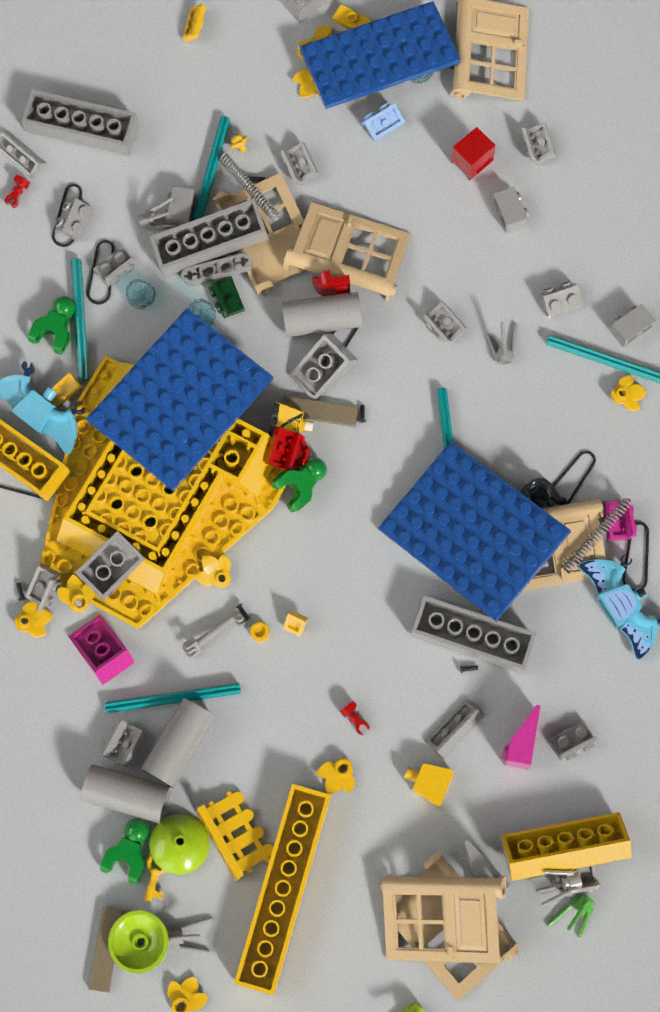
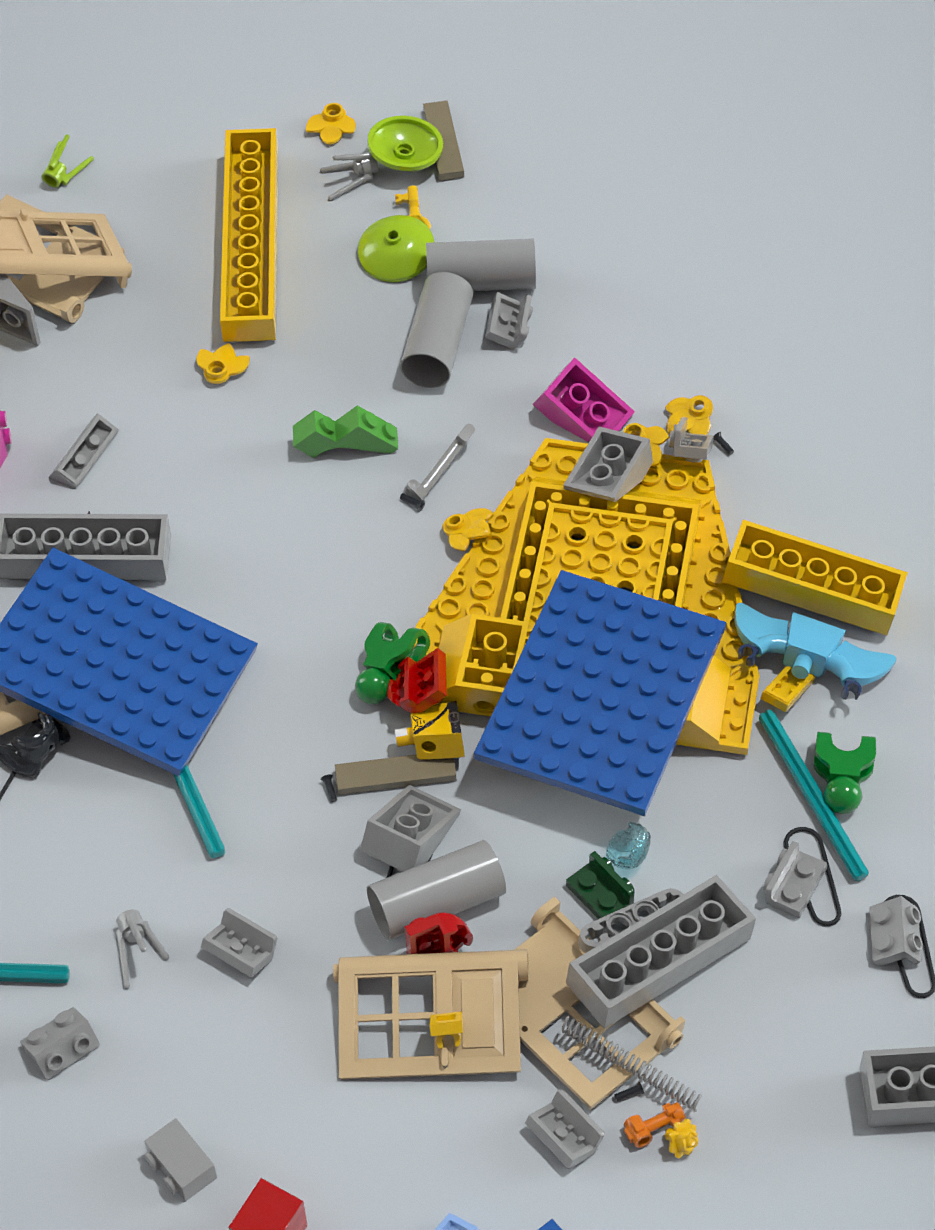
camera: 160 degrees right, 20 degrees down
(129, 850) = (455, 222): green piece -> none
(140, 294) = (734, 848): clear light blue hair -> none
(149, 219) = (775, 964): light grey plant -> none
(173, 697) = (466, 385): teal axle -> none
(181, 207) = (732, 999): light grey brick -> none
(211, 168) = (710, 1078): teal axle -> none
(235, 845) = (332, 254): yellow fence -> none
(259, 632) = (380, 485): yellow tile -> none
(260, 155) = (640, 1131): none -> orange bar
(272, 675) = (353, 430): none -> bright green arch
(295, 623) = (334, 502): yellow plate -> none
(344, 229) = (447, 1024): none -> yellow tile
(349, 710) = (227, 429): red piece -> none
(430, 782) = (96, 383): yellow torso -> none

